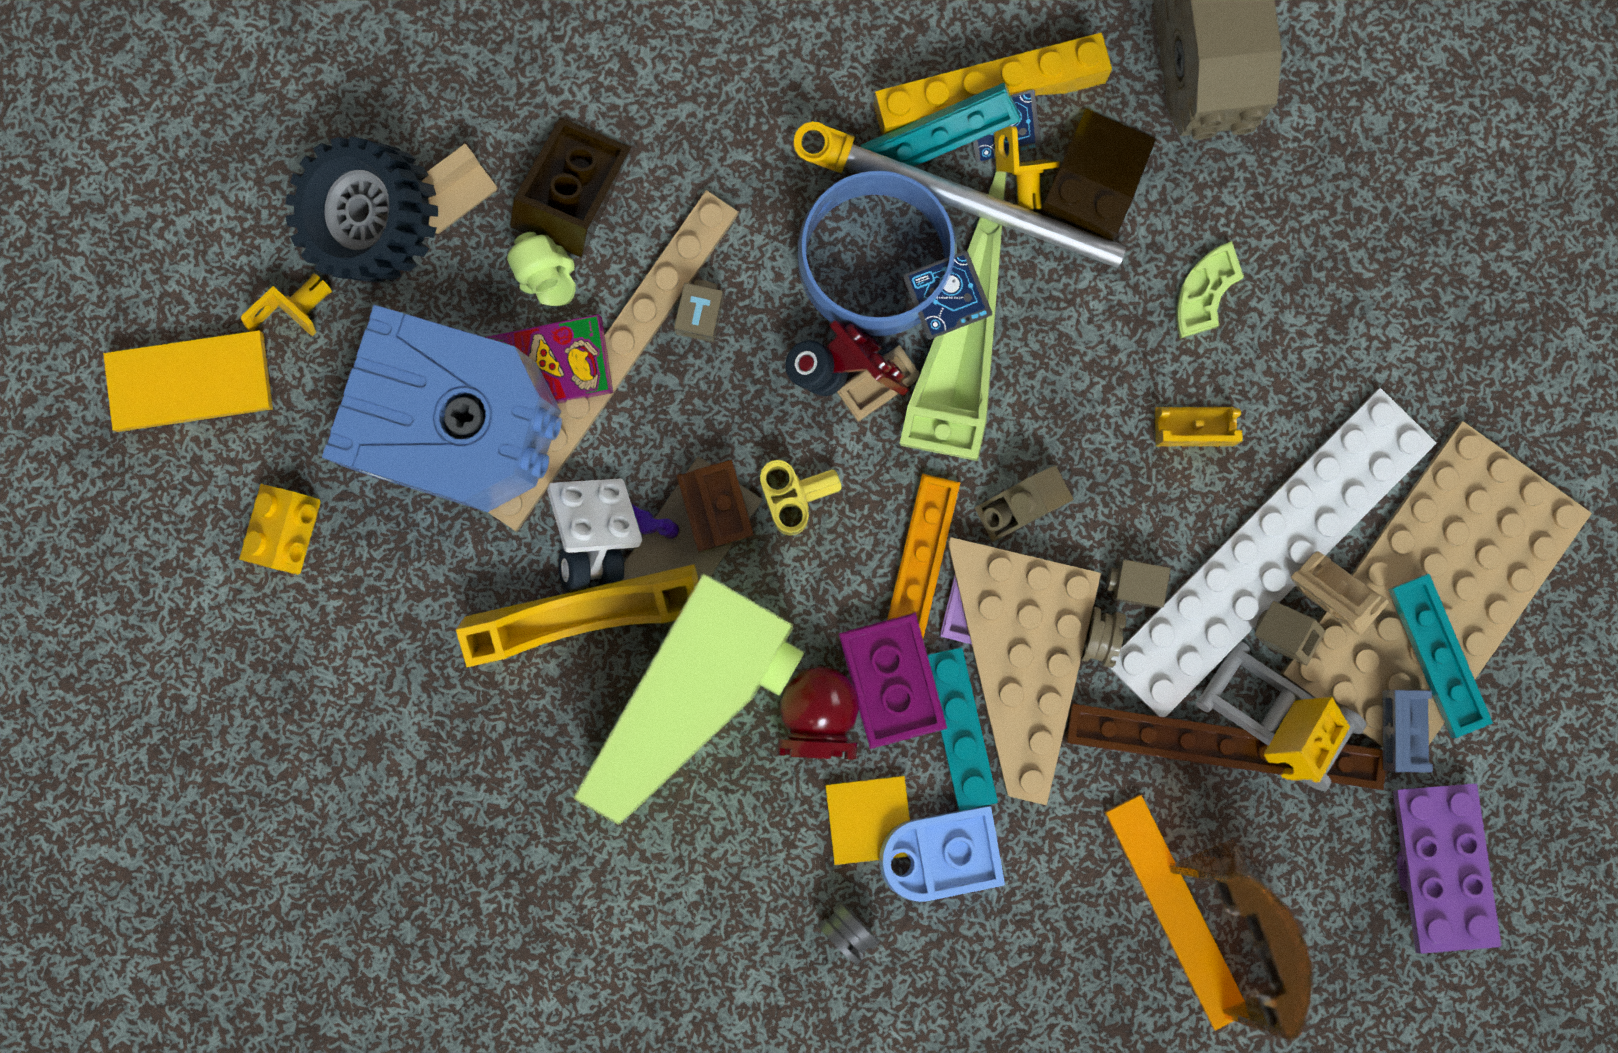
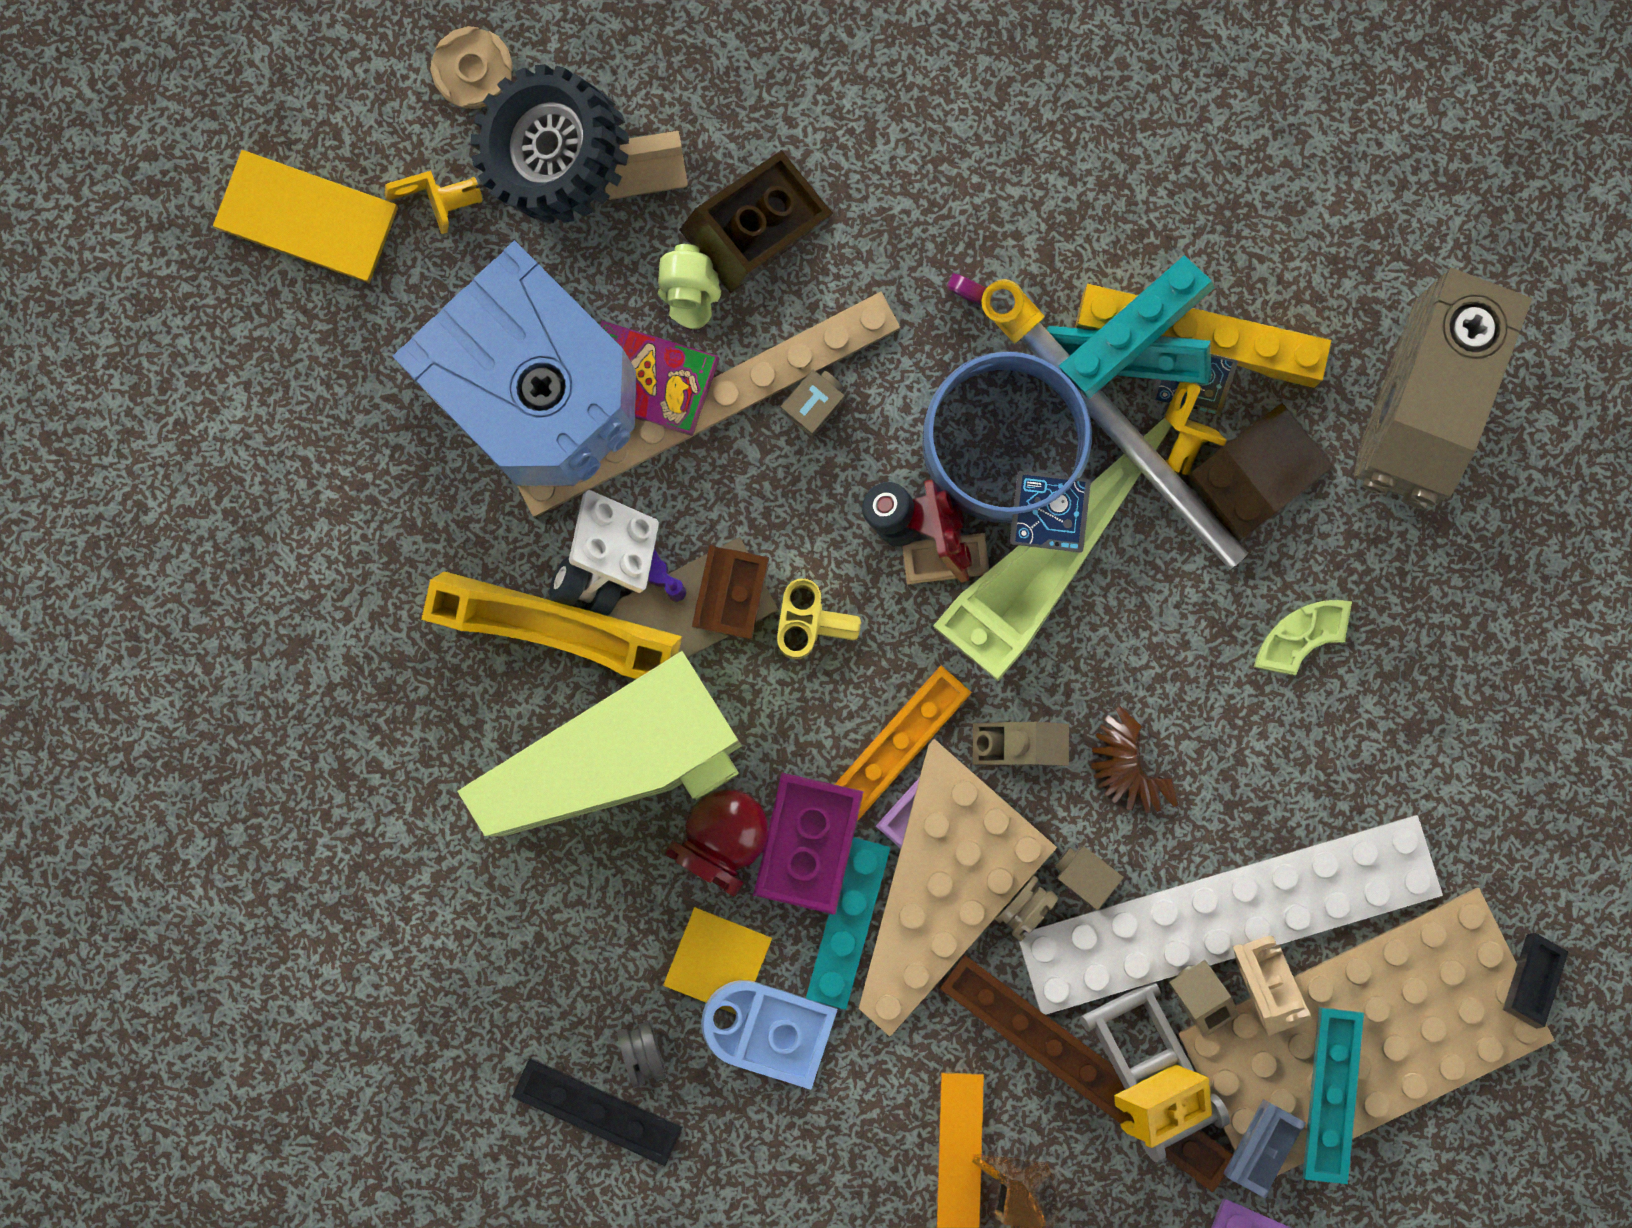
camera: 30 degrees right, 0 degrees up
(270, 193) = (470, 80): none -> tan tile
(280, 529) = (317, 399): yellow bracket -> none
(776, 150) = (966, 288): none -> magenta tile
(836, 1000) = (597, 1111): none -> black tile
(937, 102) = (1136, 326): none -> teal plate
(1119, 476) = (1126, 766): none -> reddish brown hair
(1197, 426) = (1223, 758): yellow hinge -> none
(1551, 472) = (1535, 980): none -> black tile

